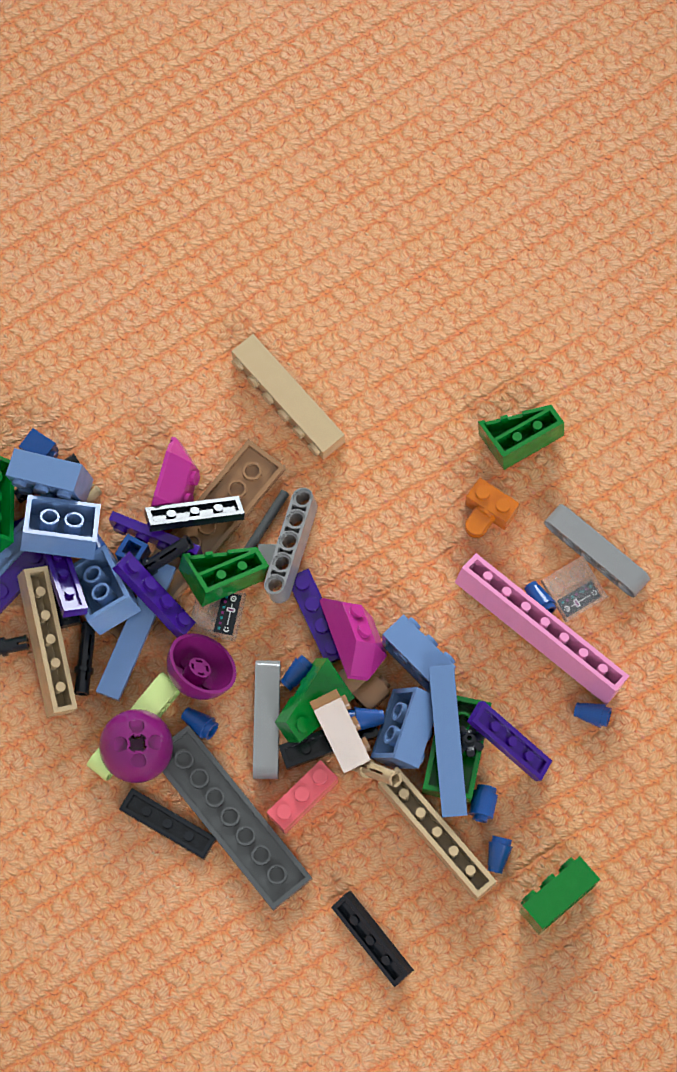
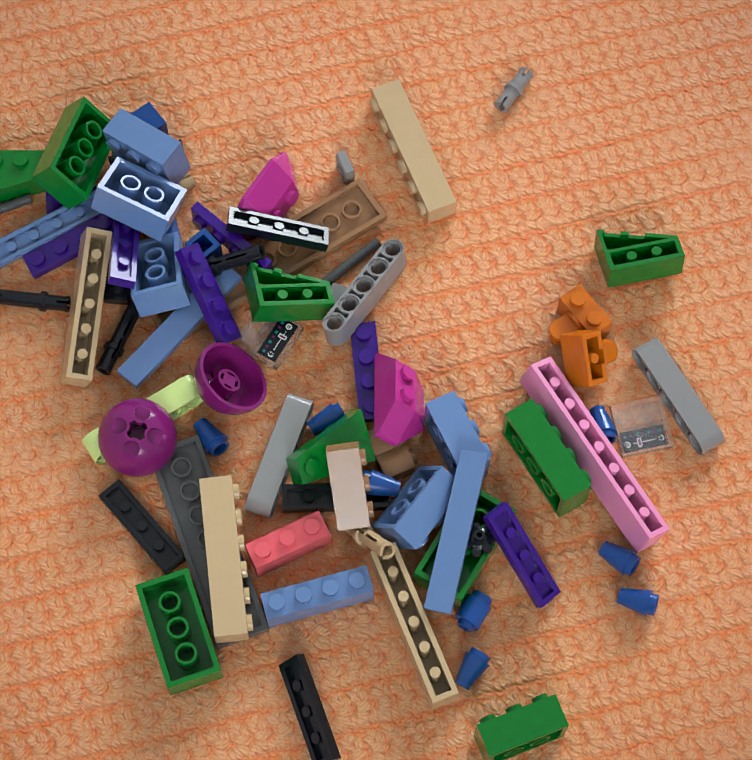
camera: 15 degrees right, 5 degrees down
(232, 432) = (344, 167): none -> light grey tile
(235, 907) = (179, 631): none -> green brick
(253, 831) = (224, 559): none -> tan brick
(344, 835) = (317, 596): none -> medium blue brick
(358, 308) = (513, 89): none -> light grey pin
(502, 646) = (546, 457): none -> green brick
(507, 543) = (586, 357): none -> orange brick
(622, 746) = (639, 600): none -> blue cone

